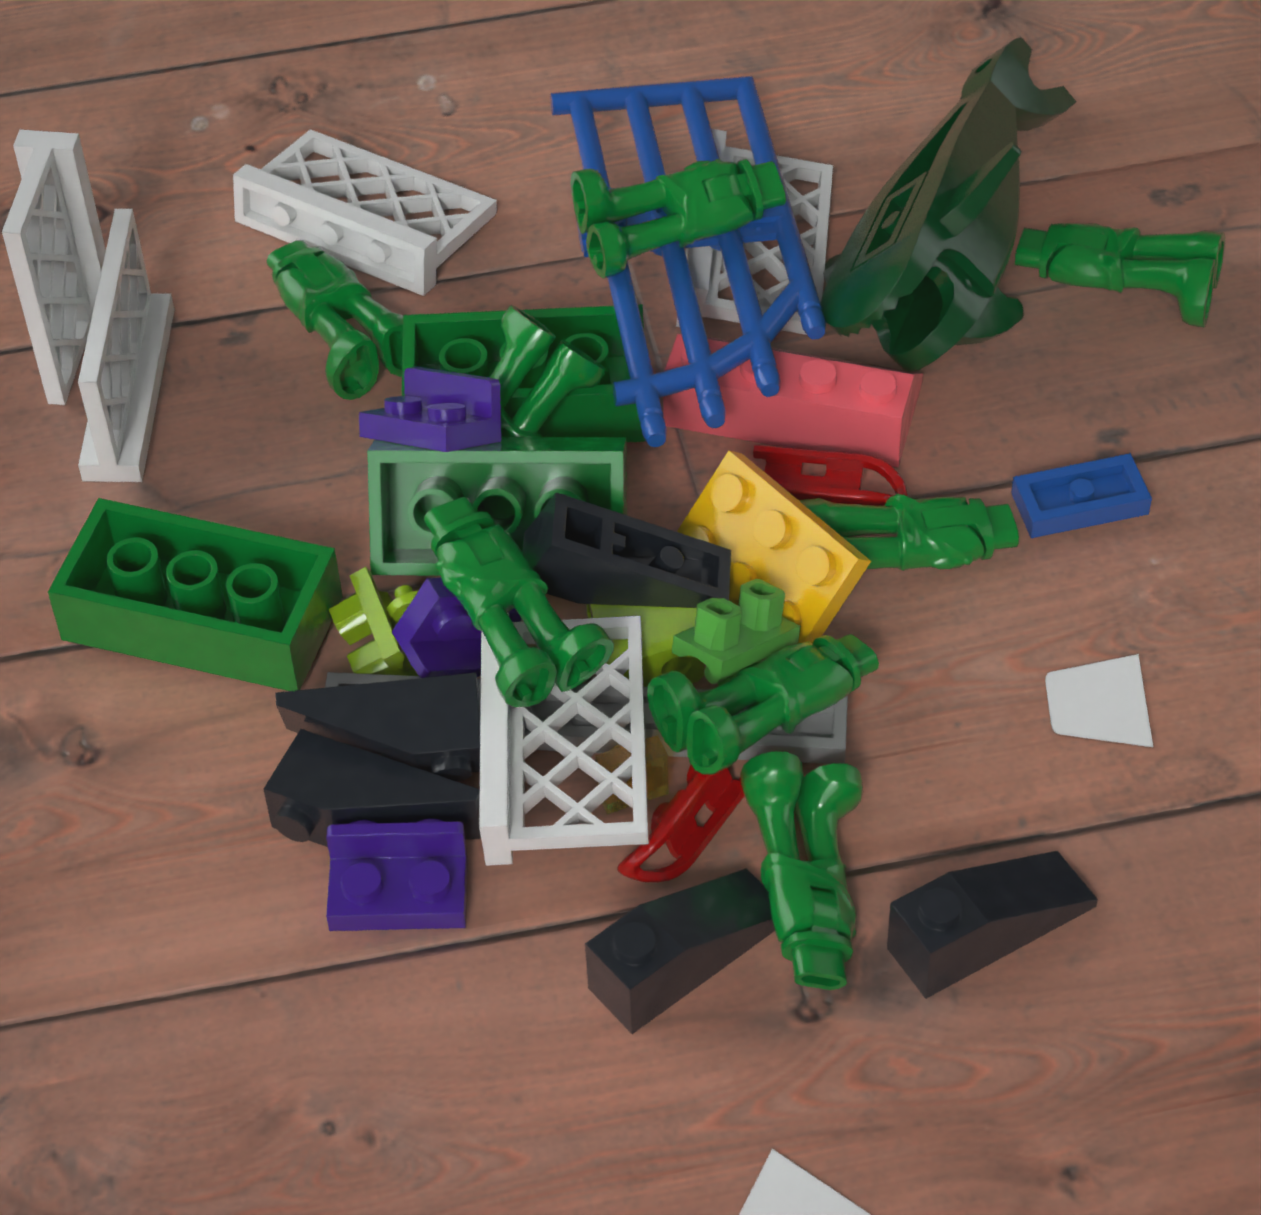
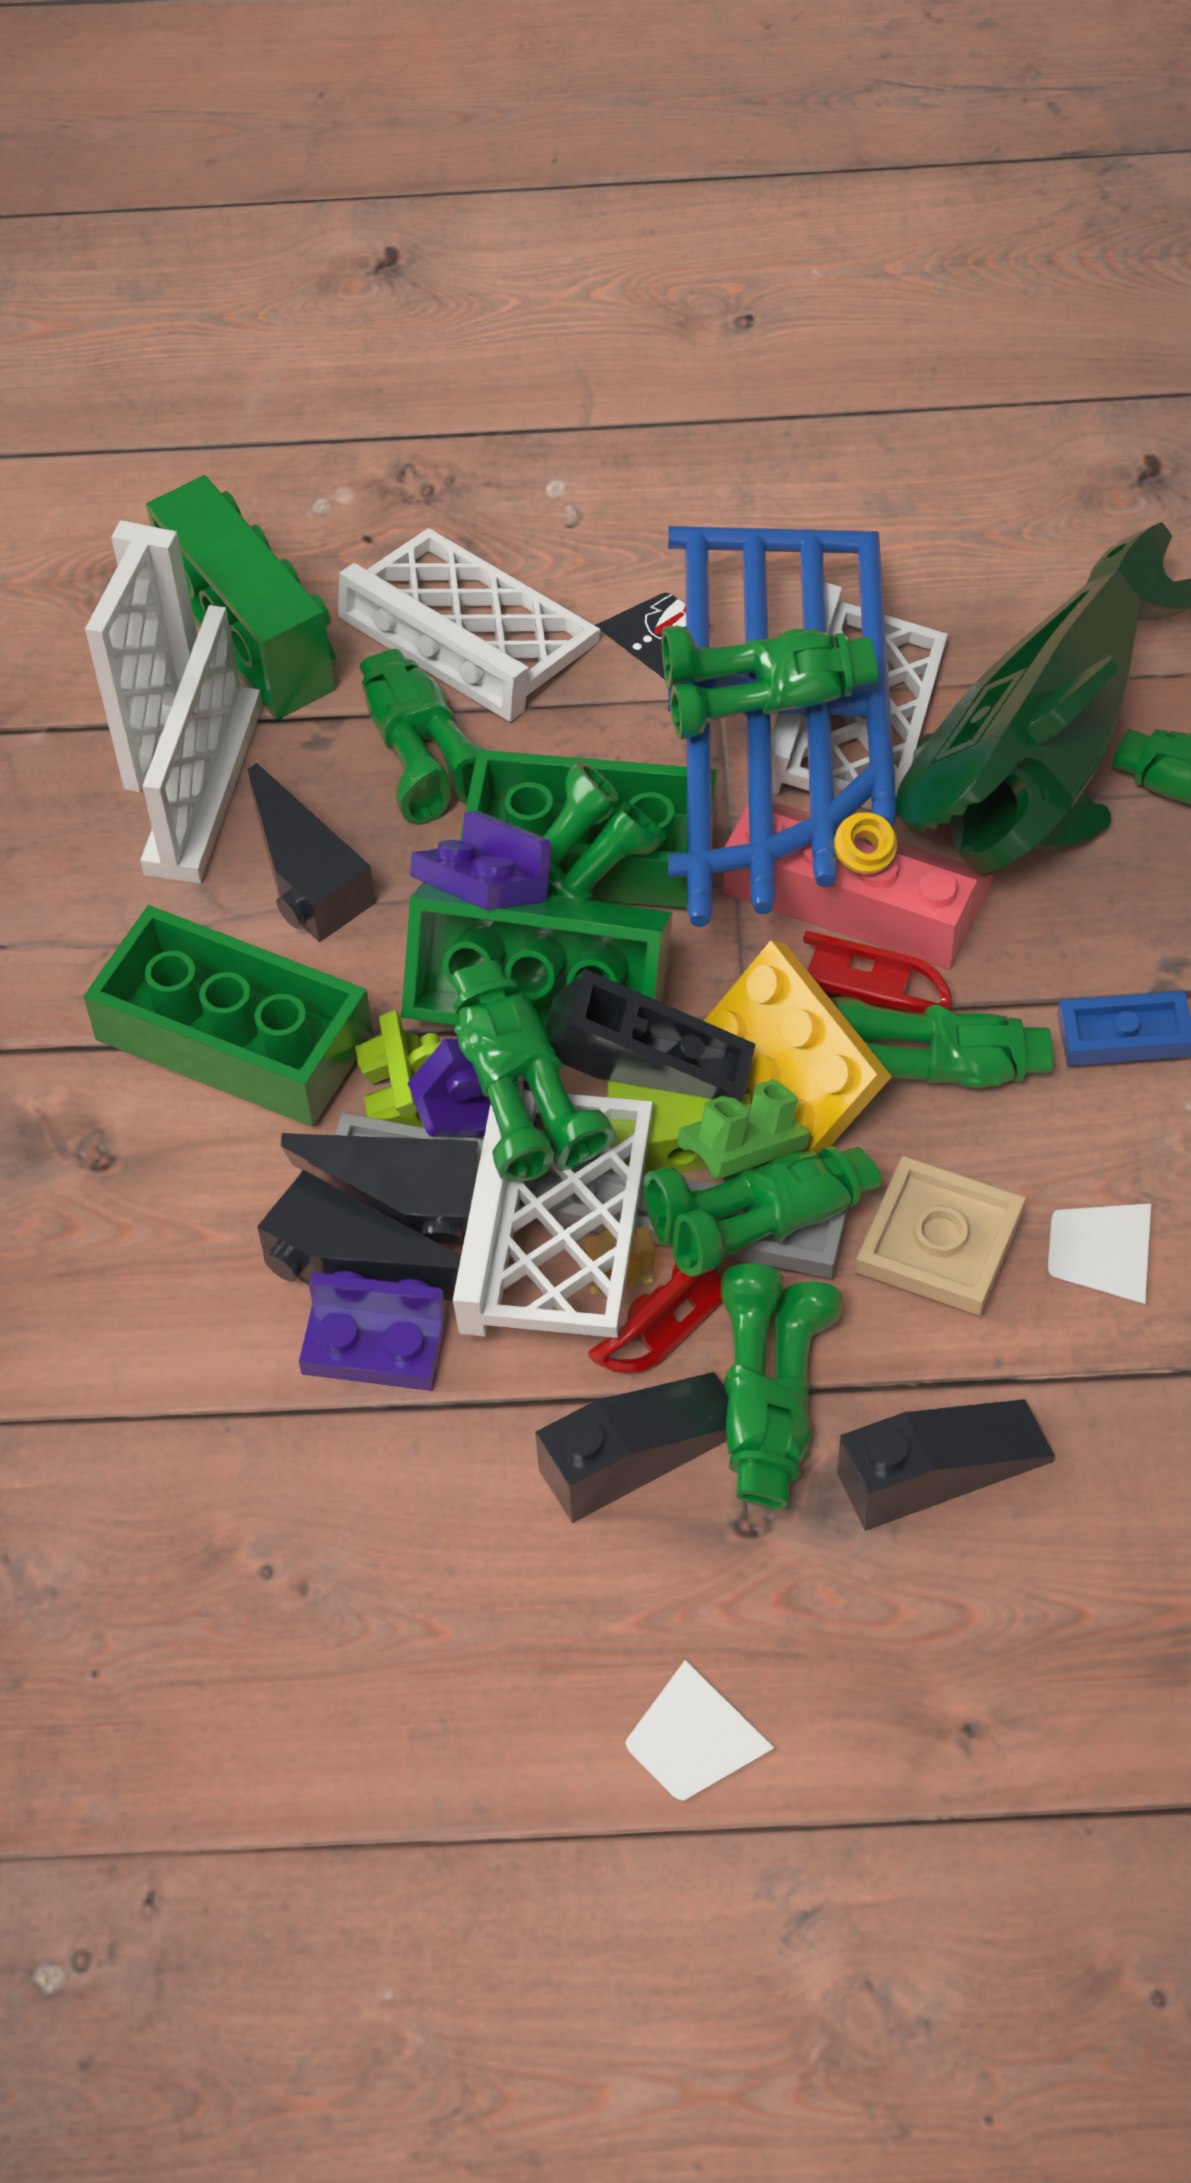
camera: 10 degrees right, 5 degrees up
(178, 219) = (271, 617): none -> green brick
(254, 450) = (314, 871): none -> black slope
(543, 199) = (641, 628): none -> black sticker
(804, 335) = (875, 830): none -> yellow plate
(943, 708) = (940, 1235): none -> tan plate

